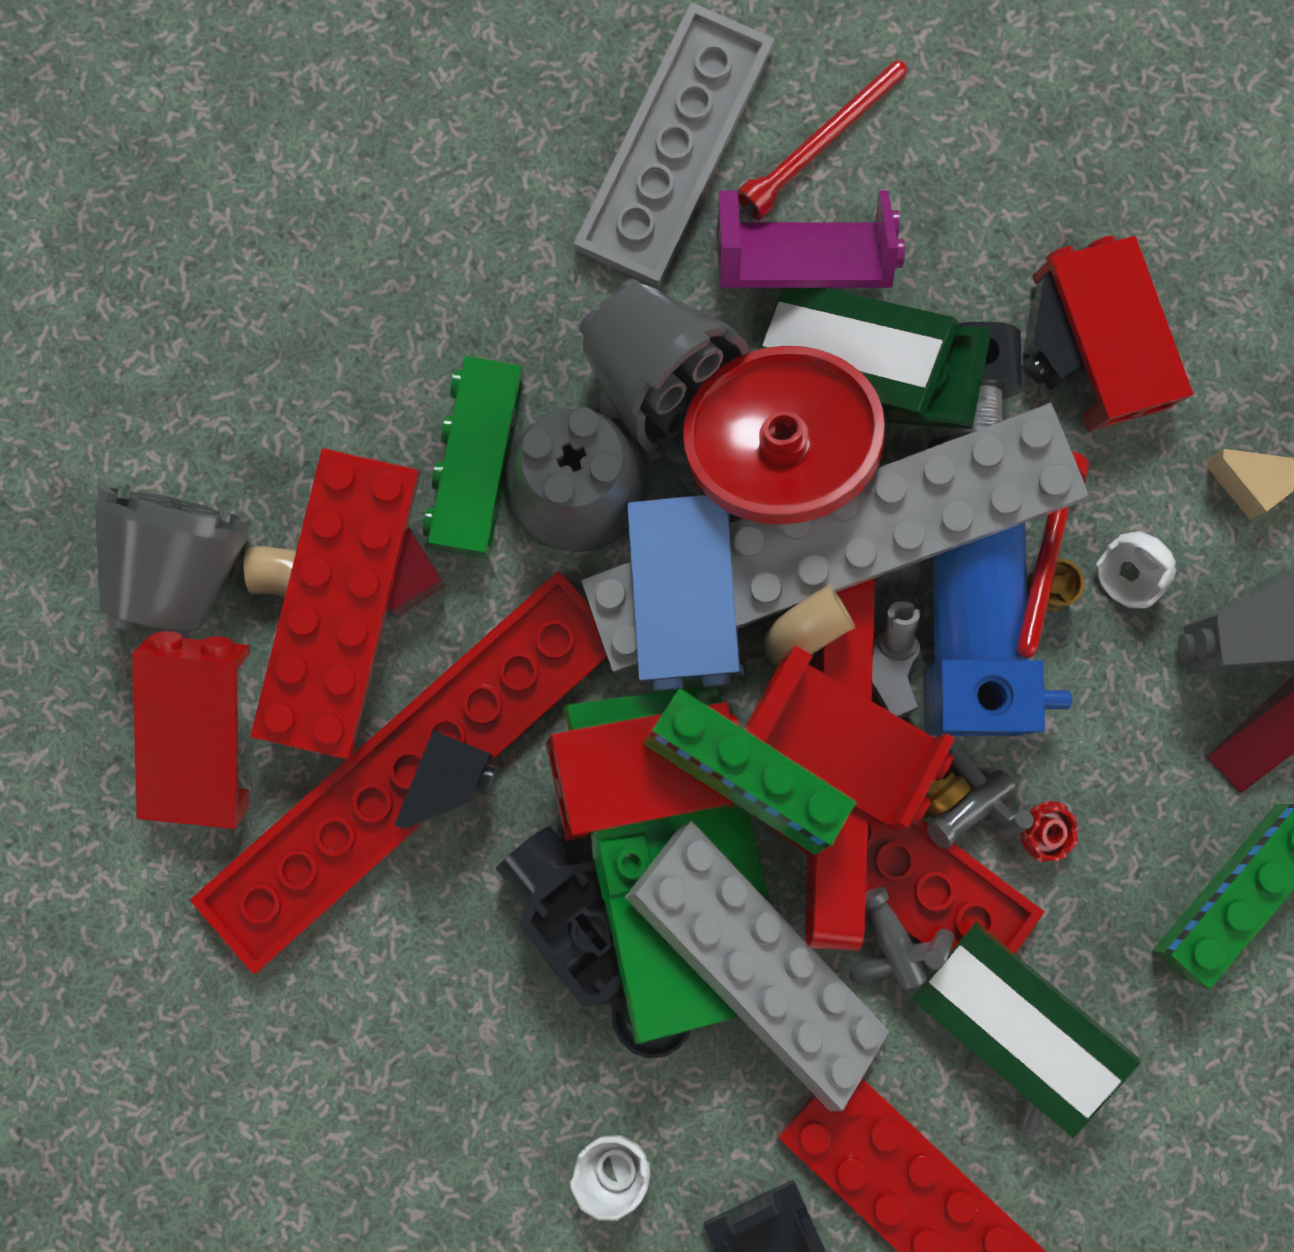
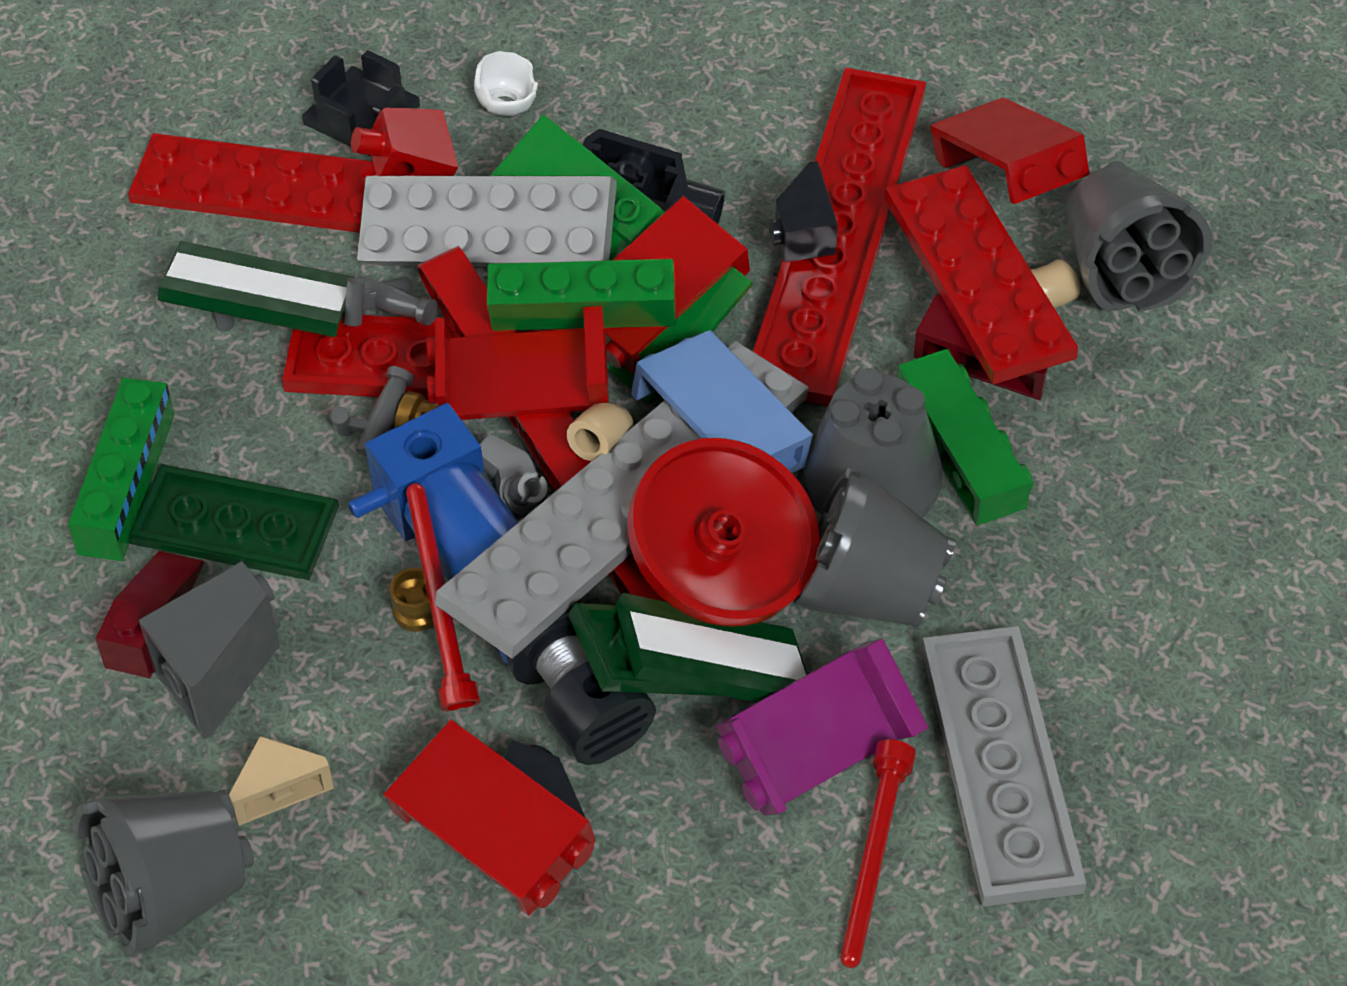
camera: 150 degrees right, 30 degrees down
(765, 1140) = (408, 143): none -> red torso
(1061, 835) = (310, 434): red plate -> none
(1150, 558) = (349, 650): white hair -> none
(1161, 783) = (234, 522): none -> dark green tile

